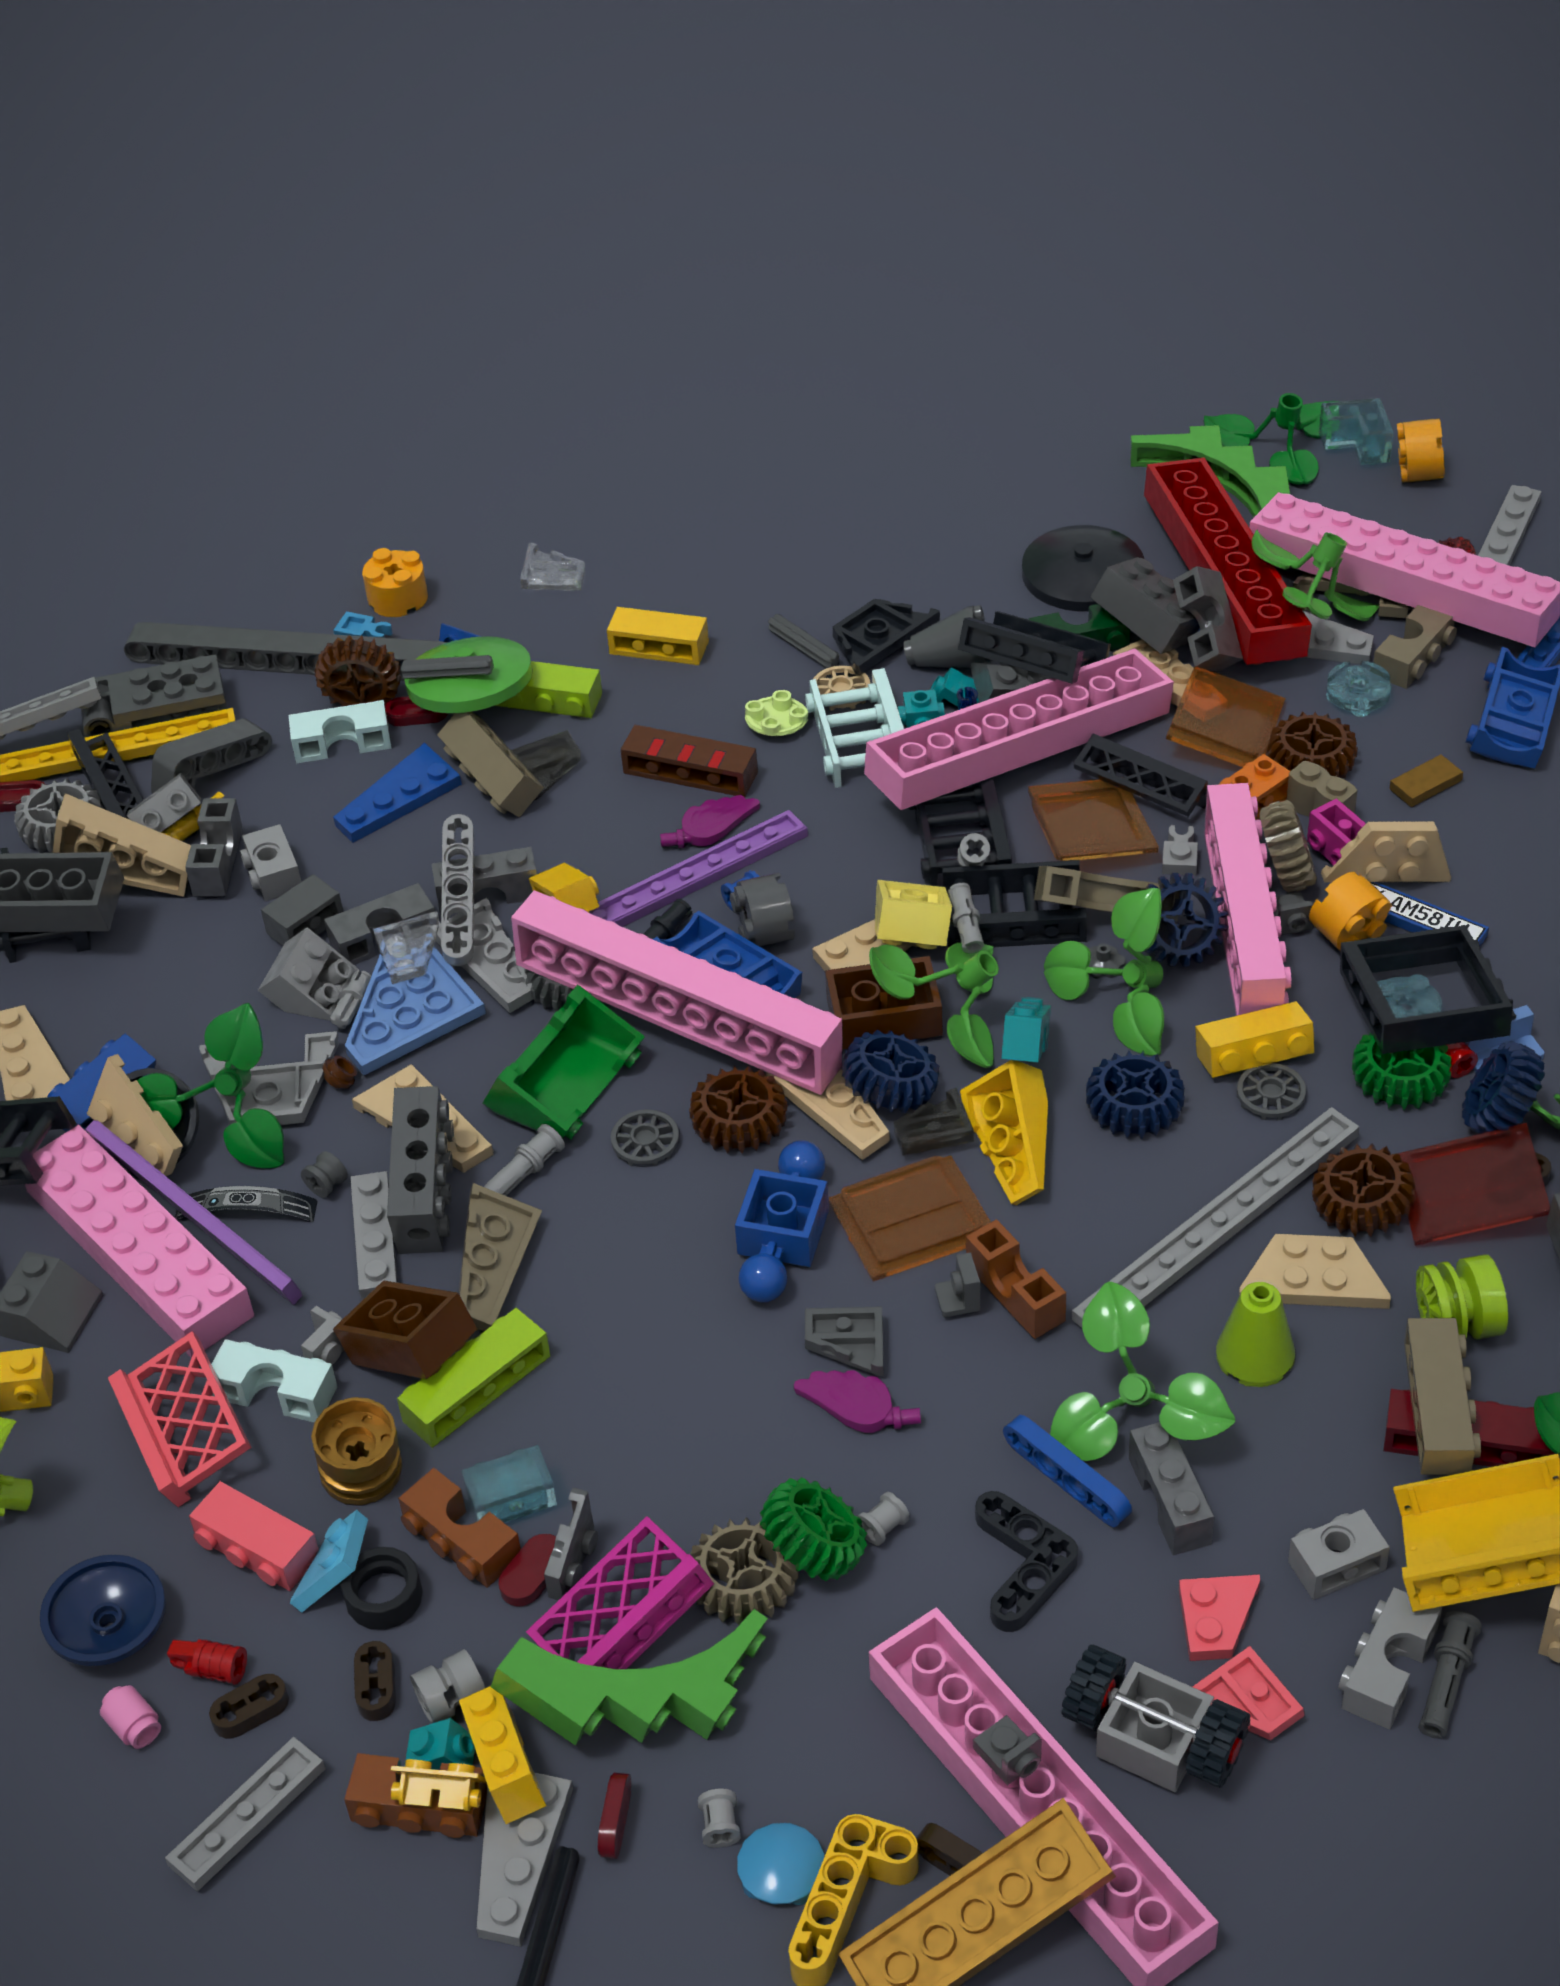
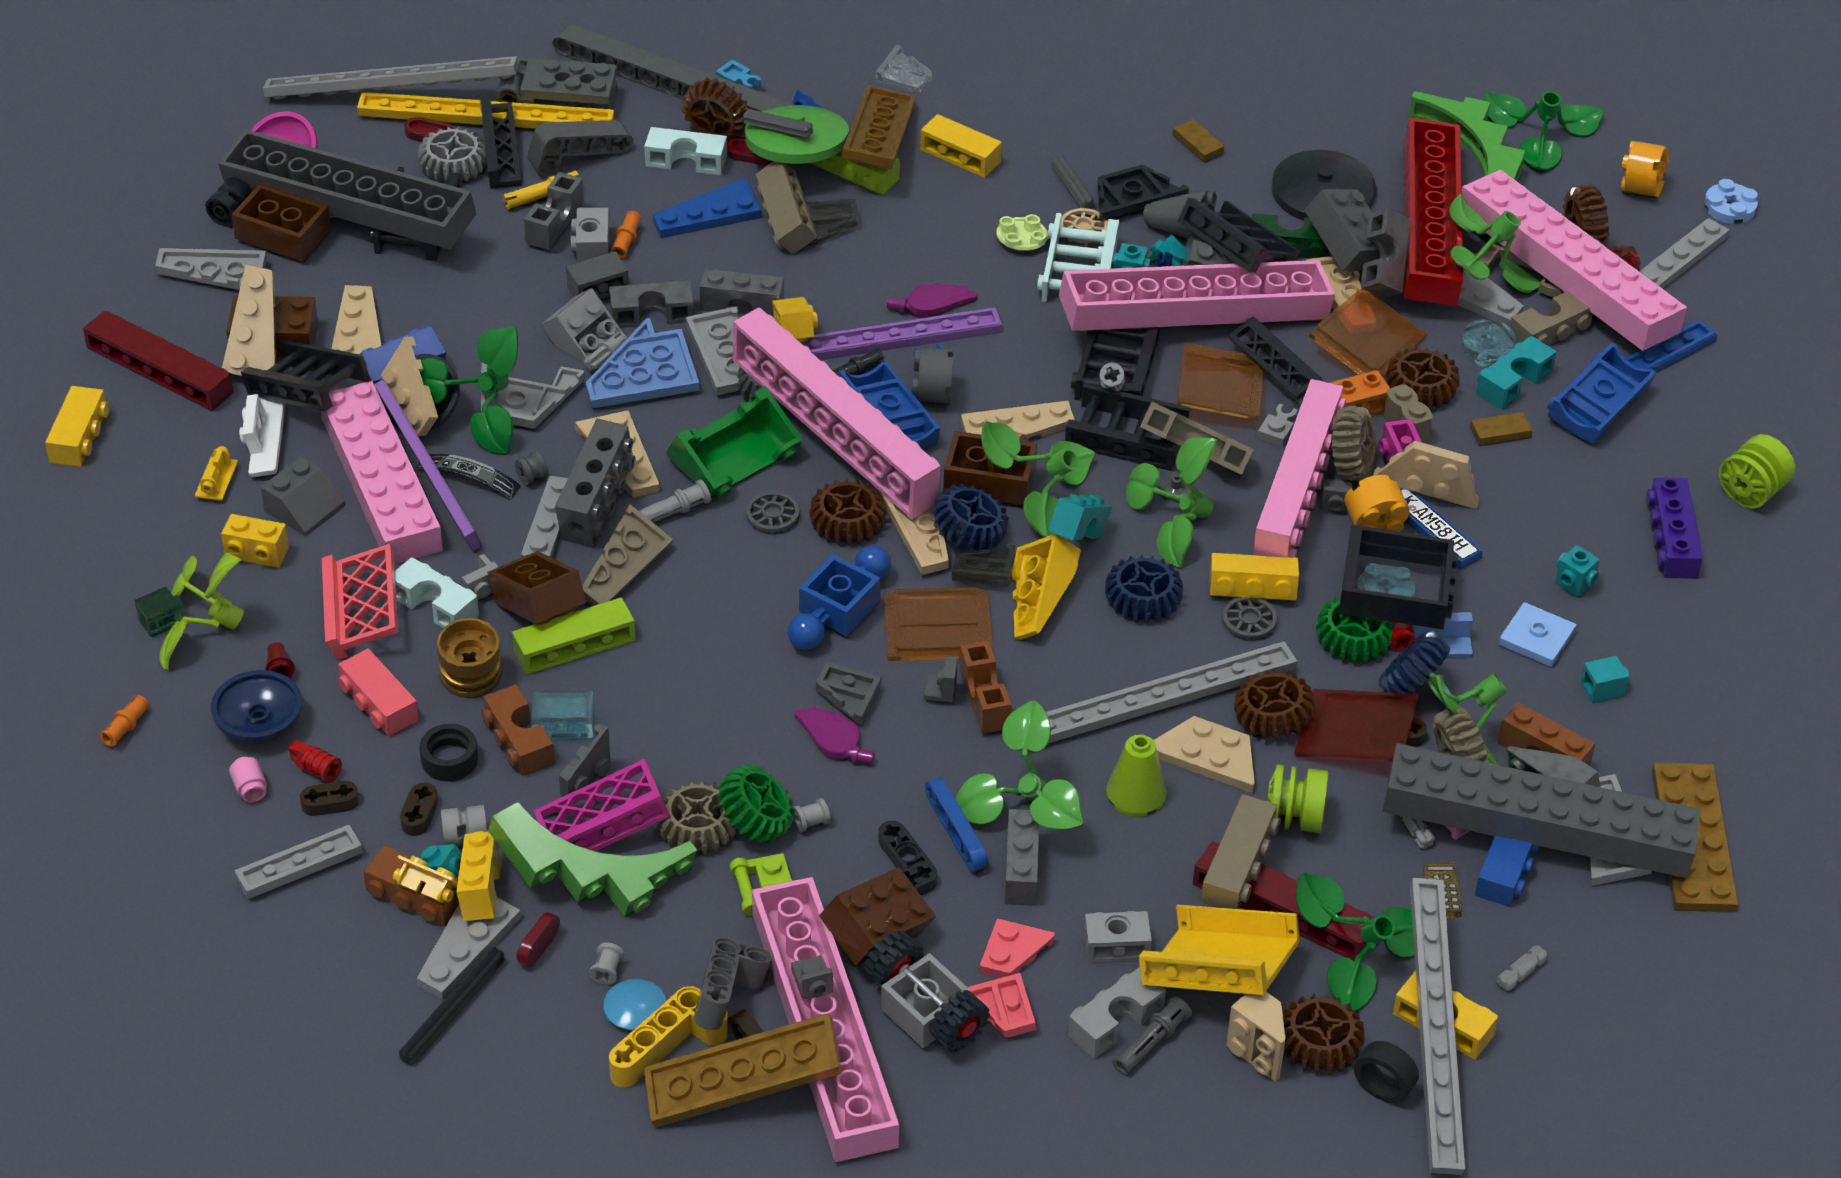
camera: 15 degrees right, 0 degrees up
(105, 1535) = (279, 660): none -> dark red cone
(143, 854) = (494, 197): tan wedge -> none
(166, 804) = (529, 170): light grey brick -> none
(312, 849) = (626, 234): none -> orange pin
(333, 1560) = (422, 723): medium azure wing -> none
(339, 1072) = (574, 400): reddish brown plate -> none
(395, 582) = (779, 46): light orange brick -> none
(407, 946) = (661, 324): clear wing -> none
(457, 903) = (709, 303): light grey beam -> none
(524, 1576) = (545, 777): dark red tile -> none
(558, 641) = (878, 127): none -> pearl gold plate
(689, 760) = (937, 248): reddish brown brick -> none
(871, 1620) = (768, 870): none -> lime plate
(883, 1773) = (728, 964): none -> dark grey beam
(912, 914) = (1042, 409): light yellow slope -> none
(919, 555) = (1198, 140): none -> pearl gold tile
(966, 918) = (1079, 423): light grey pin -> none
(1043, 1633) = (873, 910): none -> reddish brown brick
(1185, 904) = (1220, 462): dark blue gear -> none
(1357, 425) = (1603, 133): clear light blue brick -> none
(1394, 508) = (1588, 211): none -> reddish brown gear
(1403, 715) = (1502, 380): none -> teal arch
(1513, 453) = (1742, 201): none -> light blue plate

